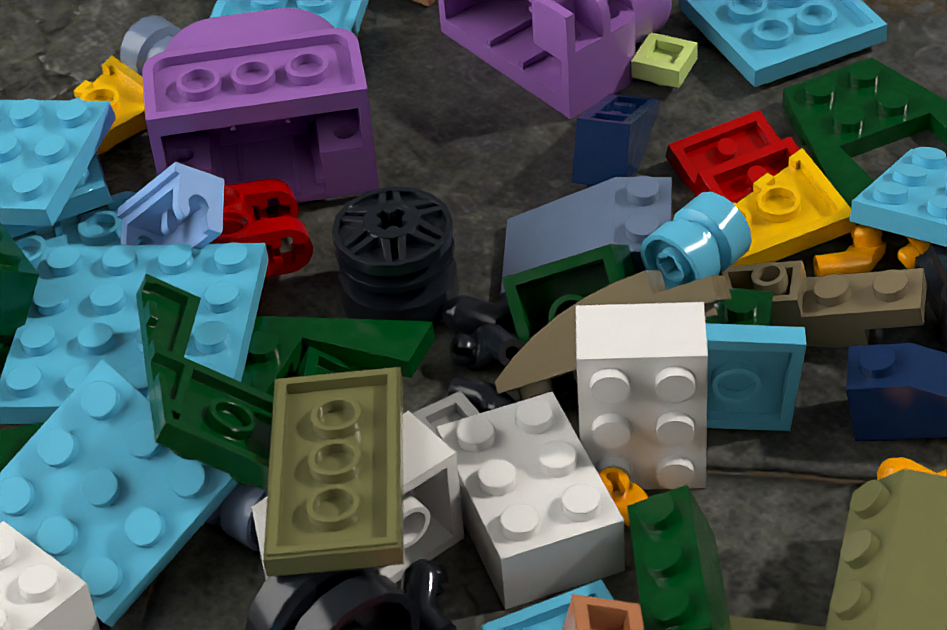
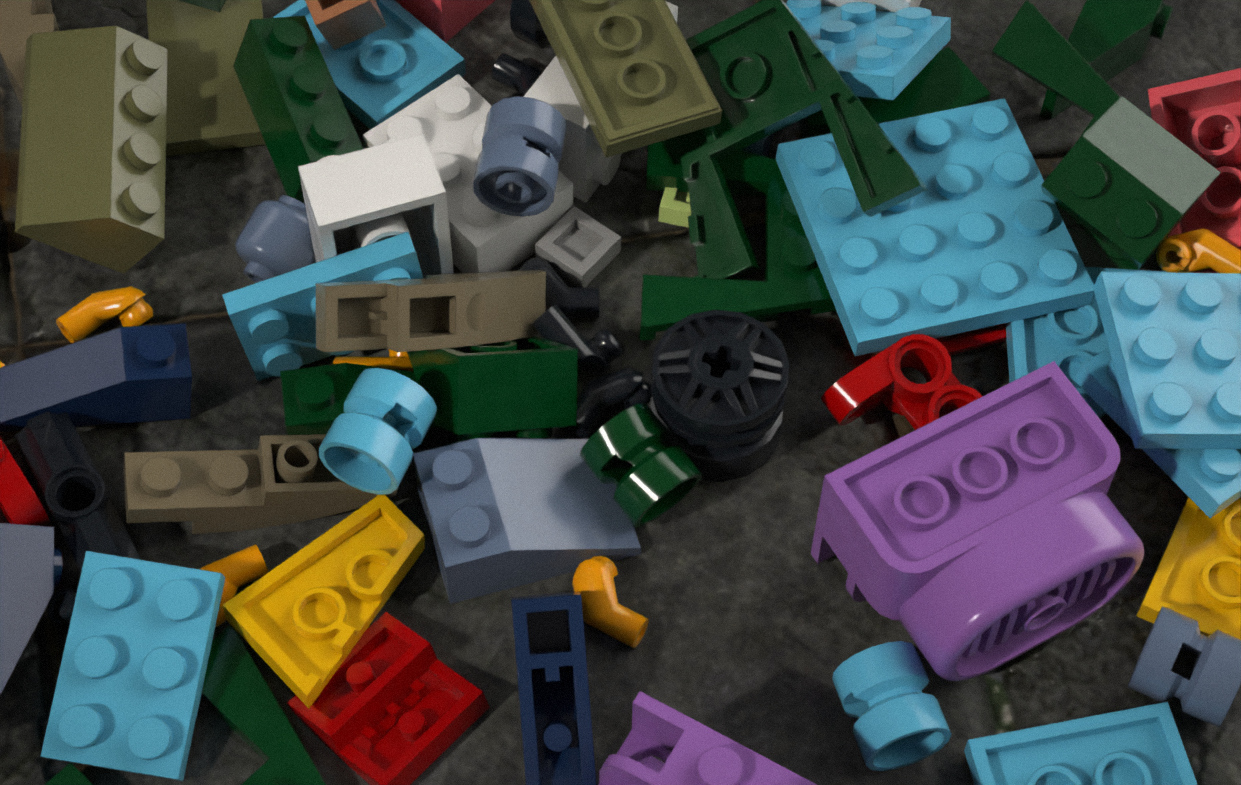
camera: 155 degrees right, 15 degrees up
(175, 208) = (974, 335): light blue hinge -> none
(390, 75) = (894, 716): none -> medium azure wheel
(483, 395) = (520, 156): none -> sand blue wheel
(486, 235) = (636, 459): none -> dark green wheel
(549, 180) = (600, 603): none -> light orange arm
(736, 487) = (275, 239): none -> sand blue head

